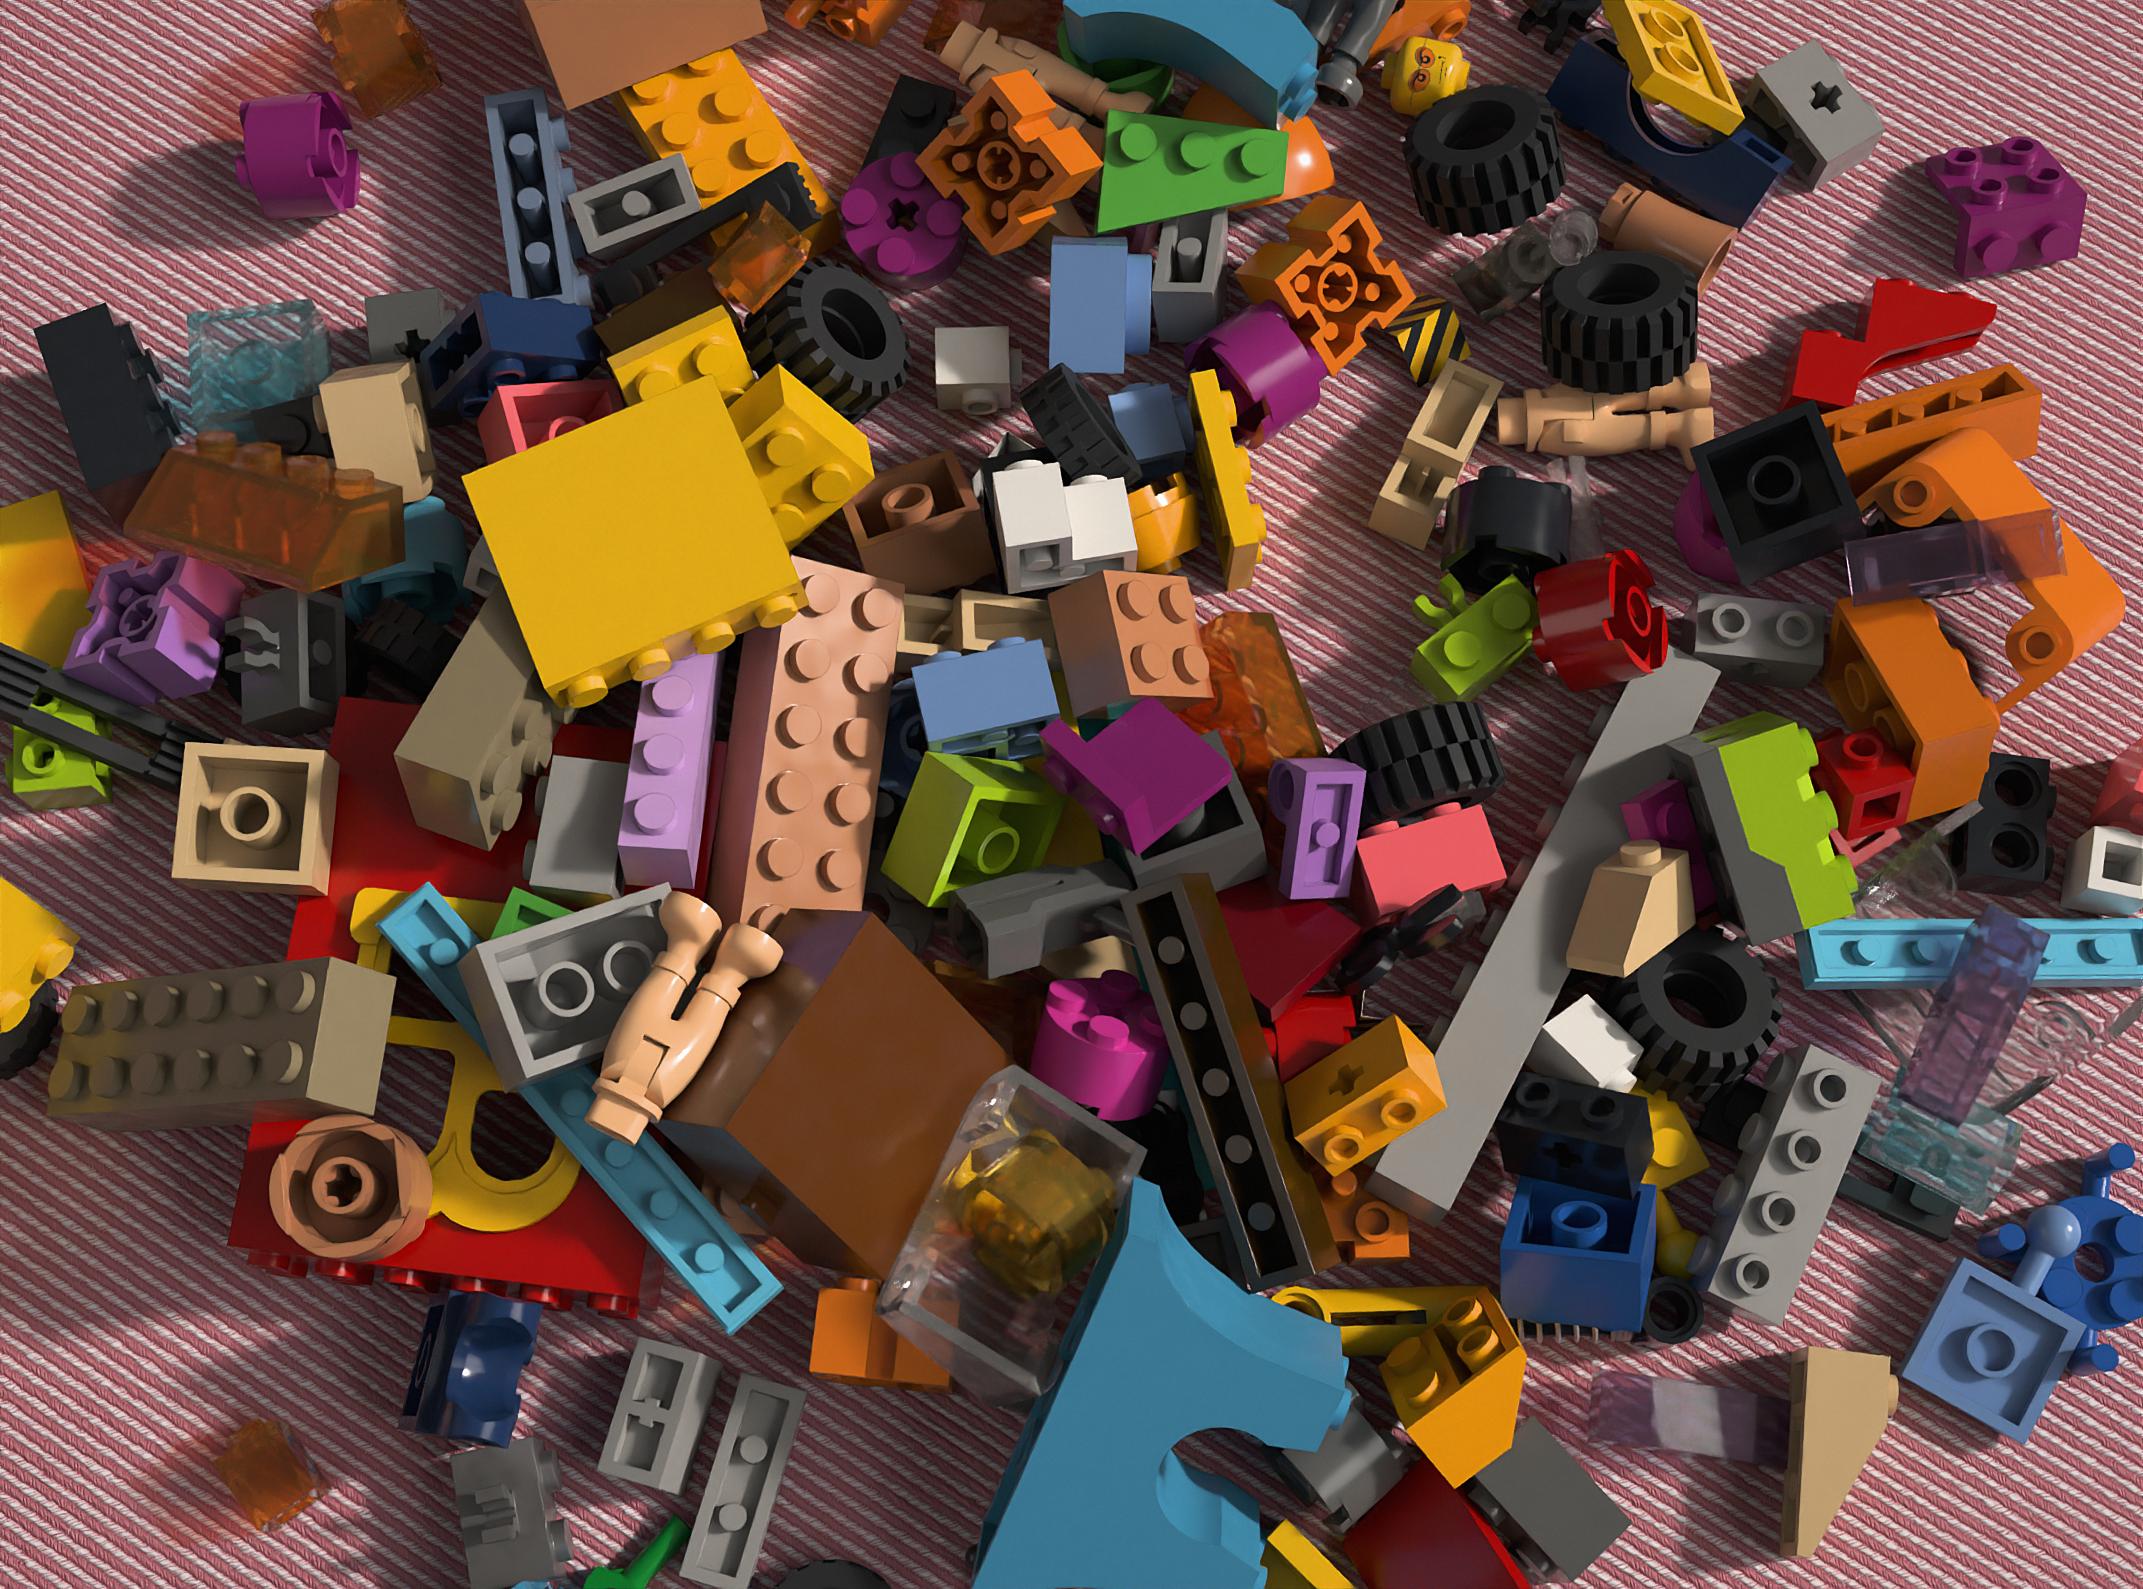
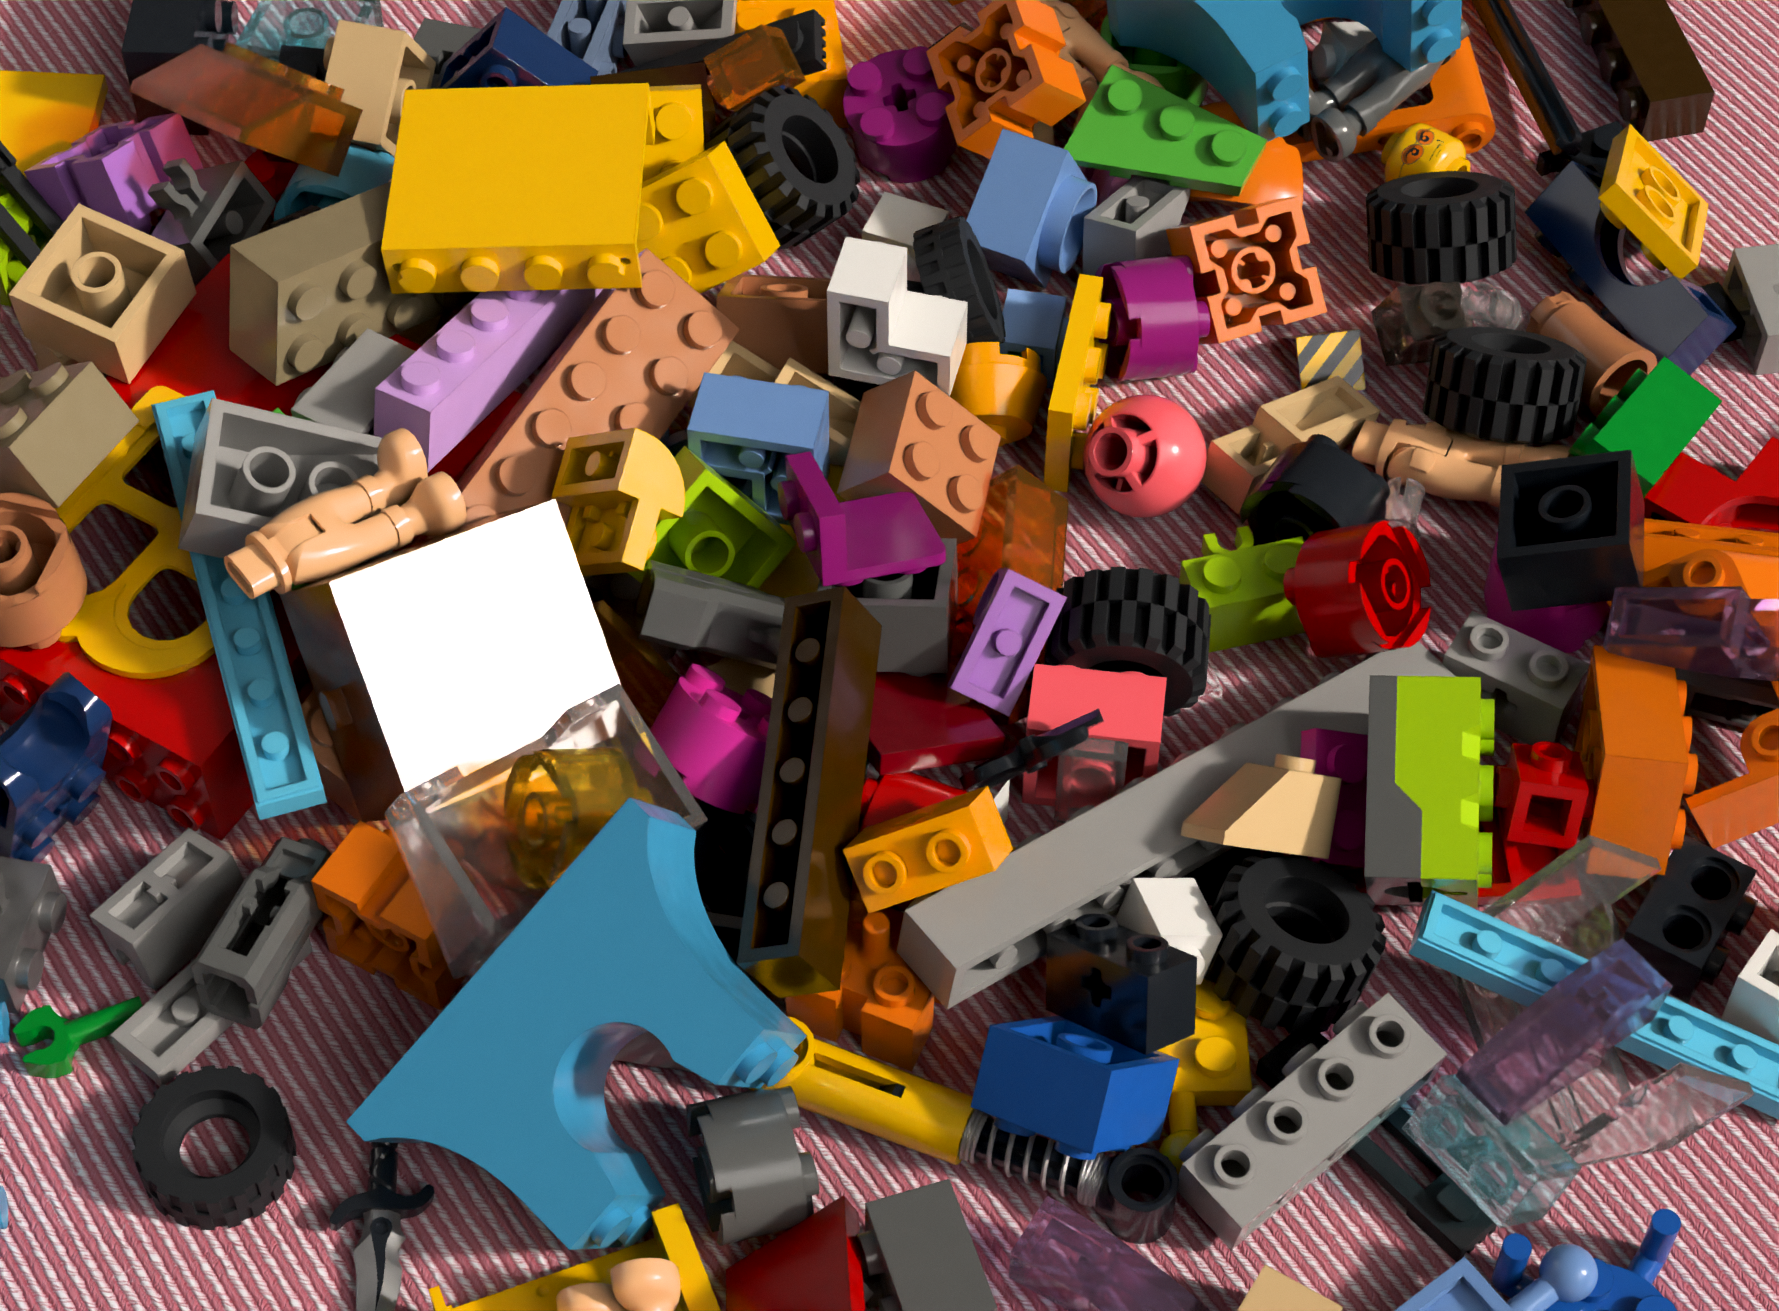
camera: 25 degrees right, 20 degrees down
(778, 1416) = (261, 934): none -> dark grey piece
(900, 855) = (617, 494): none -> yellow brick
(1324, 537) = (1144, 456): none -> coral brick
(1459, 1386) = (892, 1144): light orange slope -> none
(1763, 327) = (1652, 418): none -> green brick

